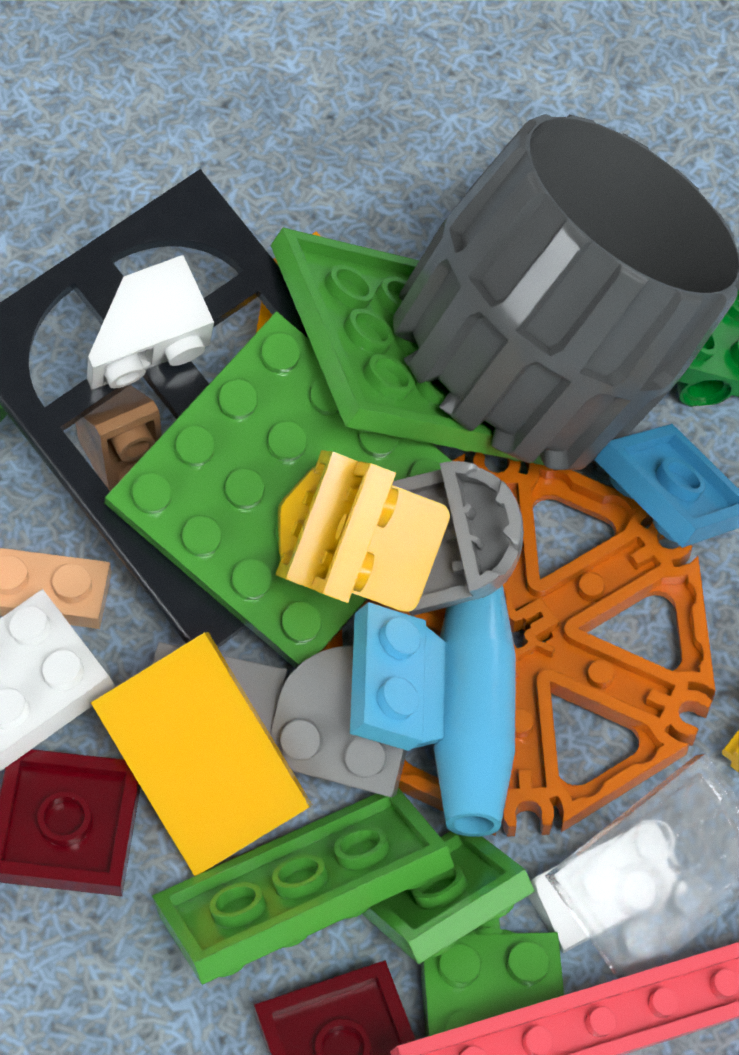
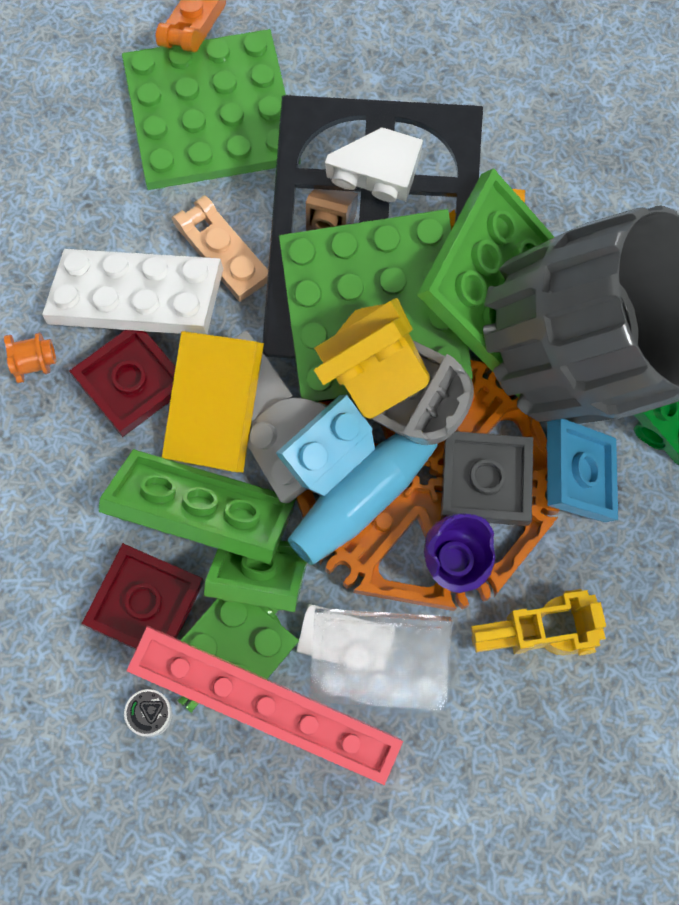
camera: 40 degrees right, 10 degrees up
(590, 576) = (488, 477): none -> dark grey plate
(642, 672) = (460, 552): none -> dark purple hair

